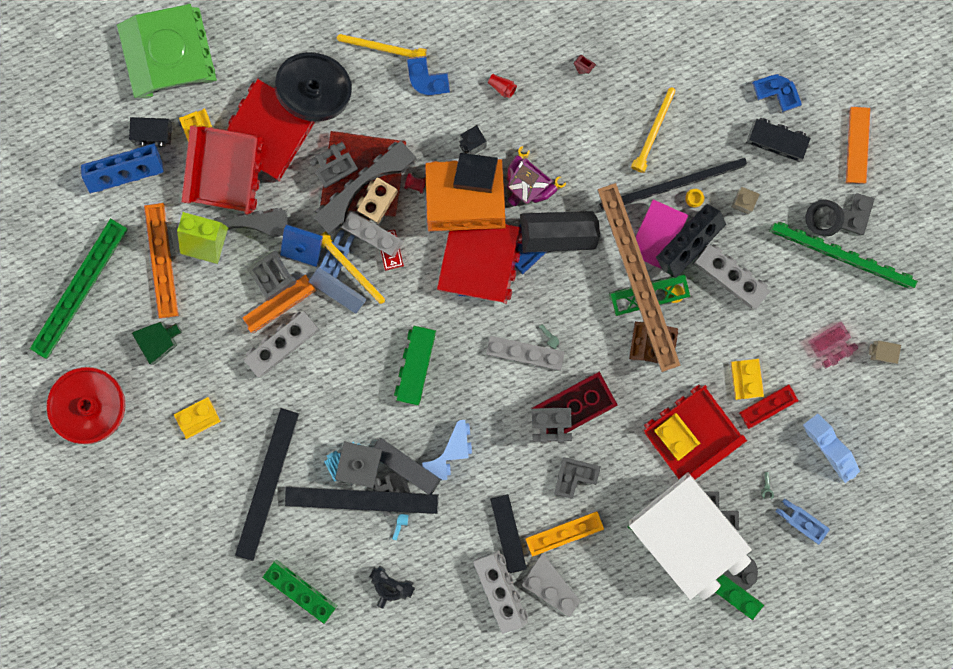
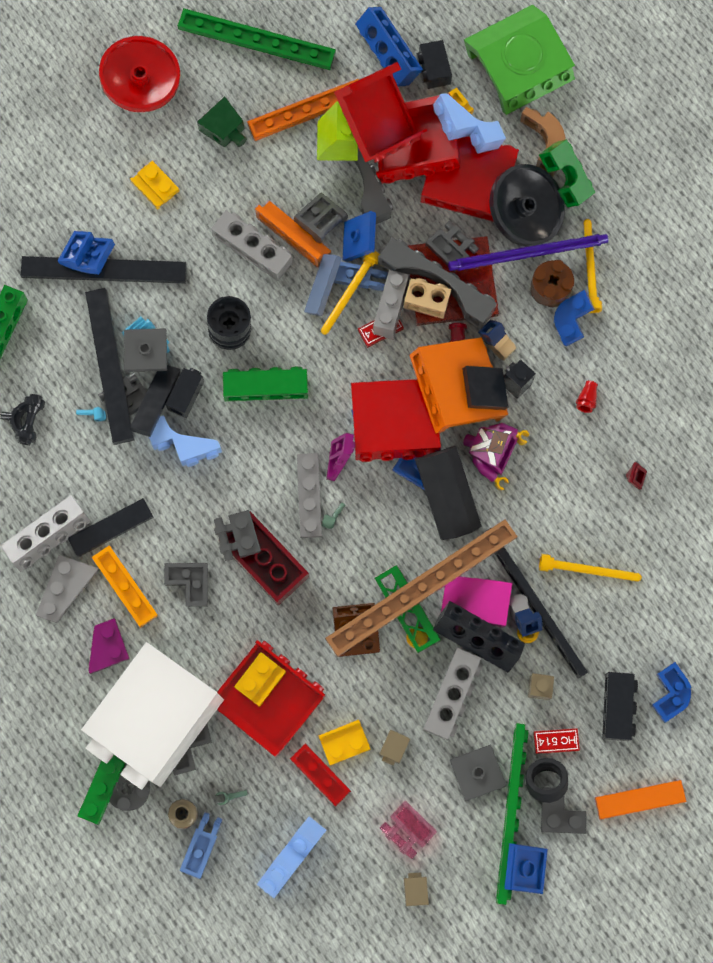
camera: 75 degrees right, 10 degrees down
(198, 196) = (378, 114): none -> red panel
(221, 125) = (460, 123): none -> light blue arch
(248, 496) = (86, 252): none -> blue slope
(253, 43) = (546, 126): none -> medium nougat arch
(306, 36) = (577, 185): none -> green arch
(347, 373) = (227, 312): none -> black wheel
(355, 161) = (526, 252): none -> dark purple piece
(381, 81) = (556, 273): none -> reddish brown brick
(404, 438) = (185, 392): none -> black brick
(432, 149) = (497, 339): none -> leg
(499, 316) = (340, 452): none -> magenta wing
(612, 561) = (107, 647): none -> magenta wing
(682, 198) = (523, 617): none -> dark blue leg
(763, 338) = (394, 748): none -> dark tan brick
(776, 536) = (175, 810): none -> dark tan head
(792, 200) = (556, 741): none -> red tile
(801, 273) = (477, 772): none -> dark grey plate
(891, 256) = (526, 868): none -> blue plate

